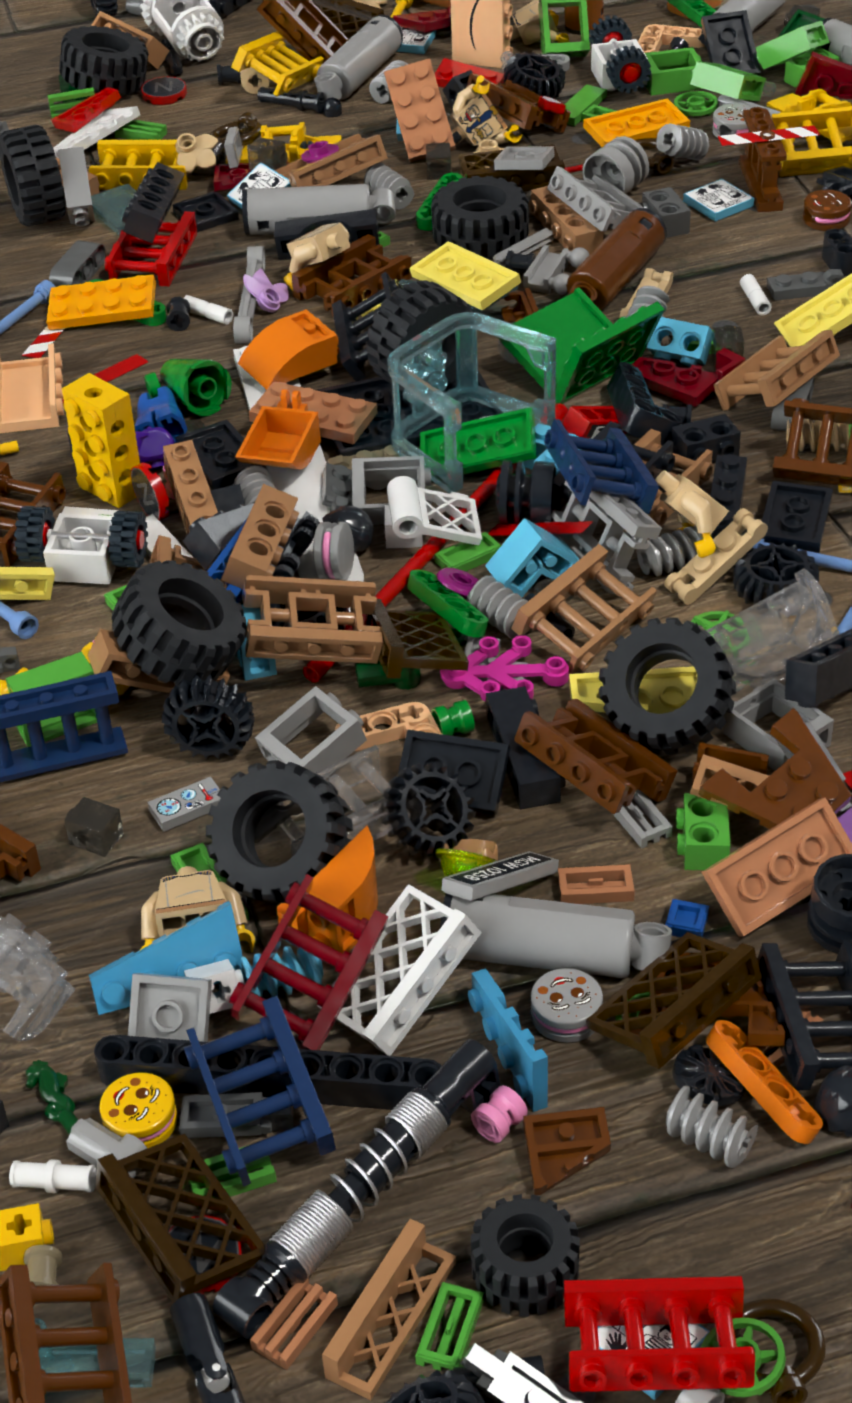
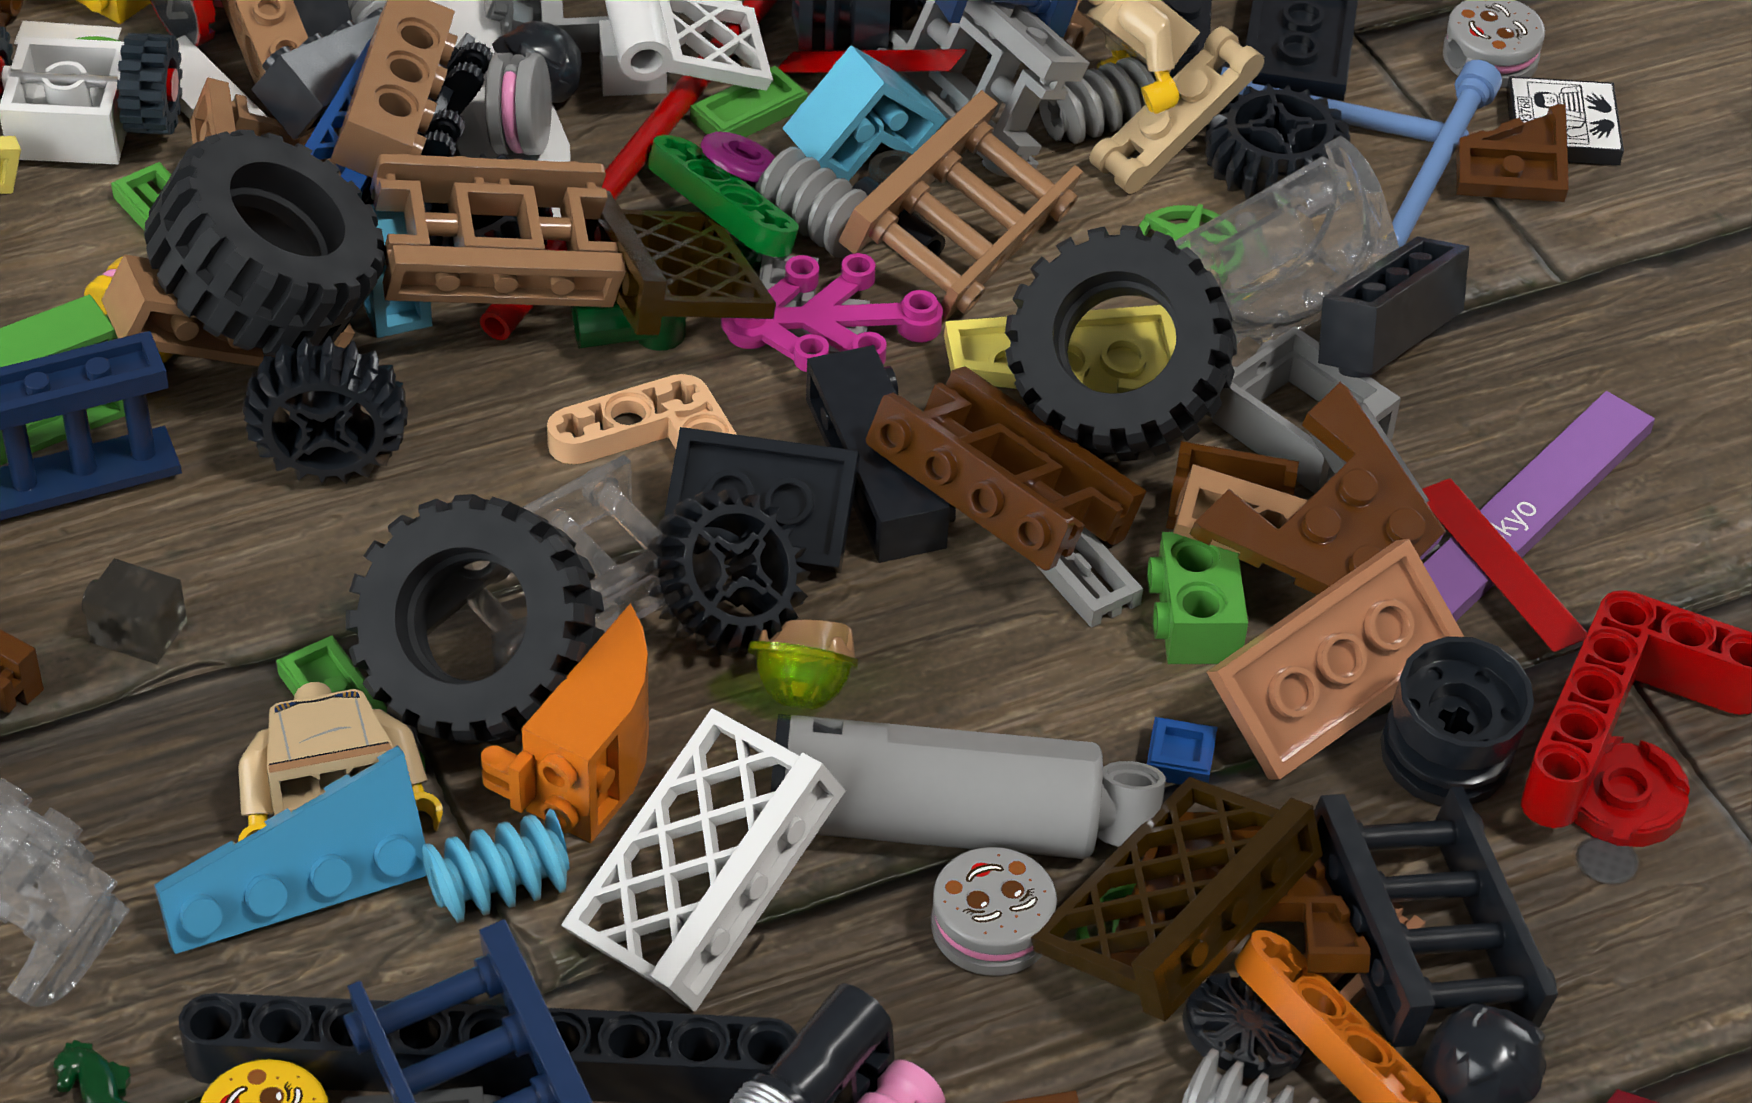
camera: 10 degrees left, 5 degrees up
(169, 1006) = (305, 939): light grey tile -> none
(184, 804) = (296, 565): light grey tile -> none
(222, 972) = (357, 899): white brick -> none
(299, 716) = (479, 408): light grey window -> none
(347, 964) = (615, 854): dark red fence -> none
(455, 719) = (755, 404): green wheel -> none
(499, 875) = (862, 686): light grey tile -> none
(514, 1045) = (913, 991): dark azure wing -> none
(595, 889) = (1023, 703): nougat tile -> none

